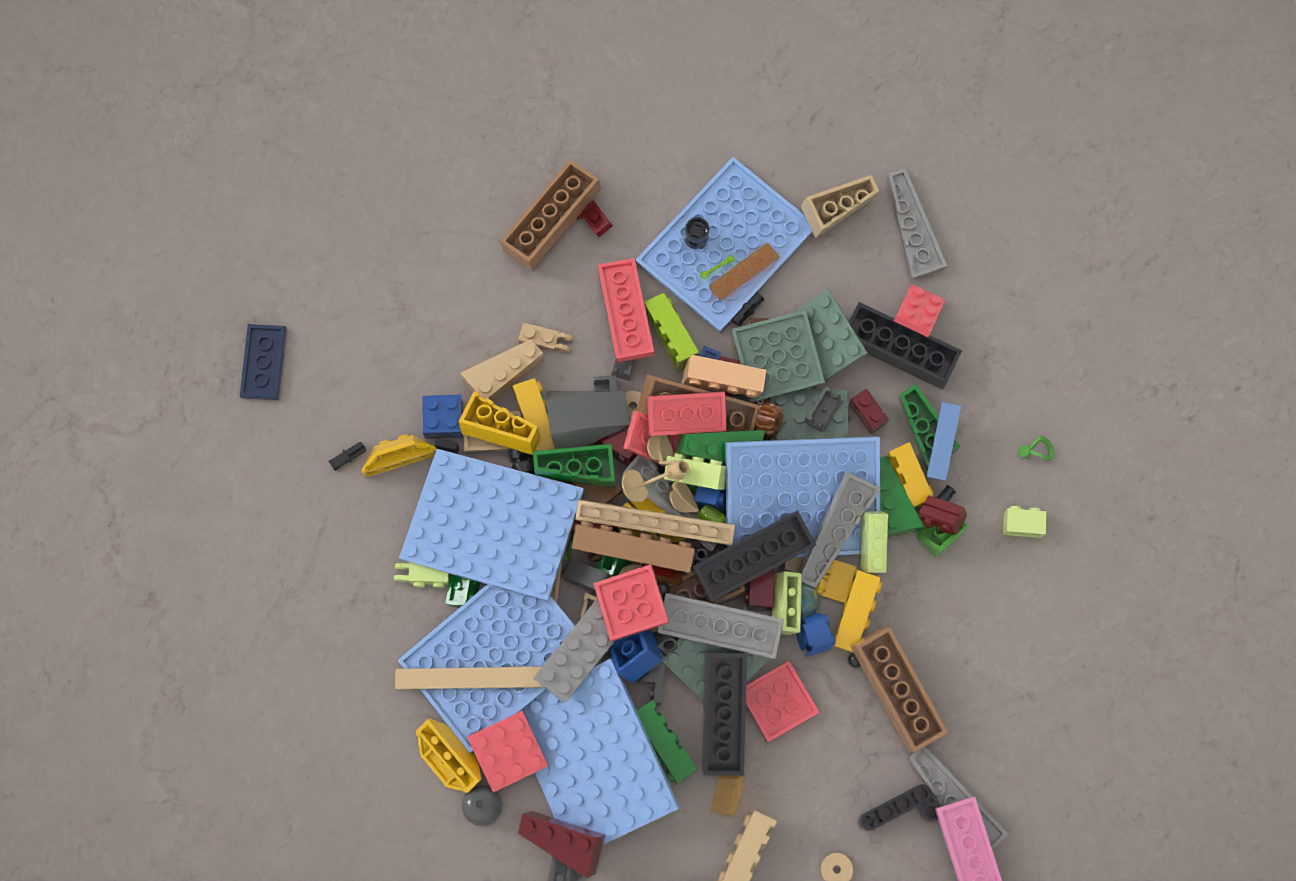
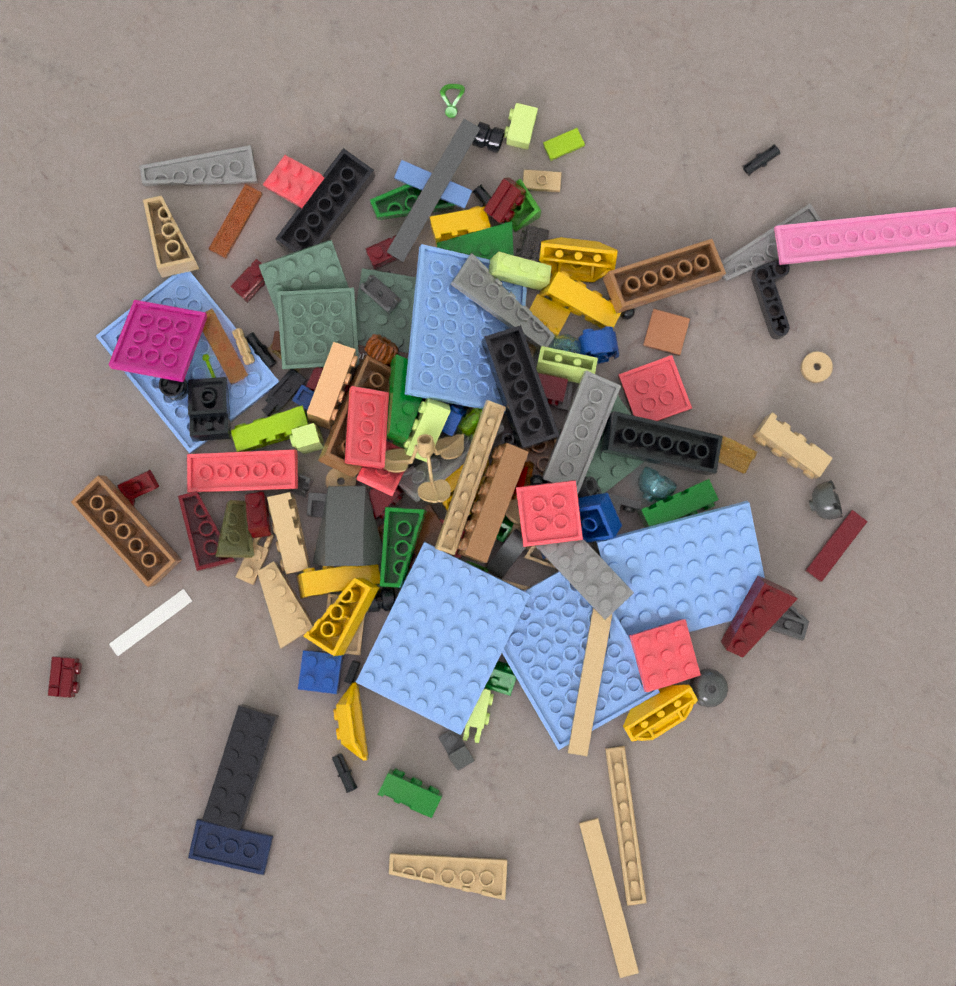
camera: 75 degrees left, 10 degrees up
(255, 736) = (608, 898): none -> tan tile
(262, 593) = (468, 874): none -> tan wing
(330, 742) = (625, 825): none -> tan tile
(336, 520) = (410, 792): none -> green wedge
(340, 357) = (240, 767): none -> black brick
(384, 560) = (456, 749): none -> dark grey slope
(404, 184) = (64, 677): none -> dark red brick
(467, 253) = (150, 622): none -> white sticker
(558, 285) = (201, 533): none -> dark red wedge
(566, 314) = (235, 537): none -> olive wing
(574, 363) = (289, 533): none -> tan wedge
(586, 331) = (258, 514): none -> dark red brick
(667, 362) = (307, 439): none -> yellowish green brick
(680, 269) = (209, 409): none -> black slope
(681, 715) = (655, 485): none -> clear light blue cylinder
(711, 337) = (283, 391): none -> black hinge
(737, 210) = (158, 340): none -> dark pink plate
(747, 291) = (243, 346): none -> tan axle
(810, 285) = (249, 282): none -> dark red brick
(842, 704) = (666, 332): none -> nougat tile
(870, 265) = (235, 221): none -> clear orange tile
(900, 598) = (579, 258): none -> yellow wedge
(904, 553) = (532, 243): none -> clear smoke brick
(937, 441) = (433, 190): none -> dark grey tile
(973, 553) = (542, 180): none -> tan plate
(1006, 488) = (489, 137): none -> black wheel
(1015, 569) = (563, 144): none -> lime tile
(1044, 775) = (761, 159): none -> black pin

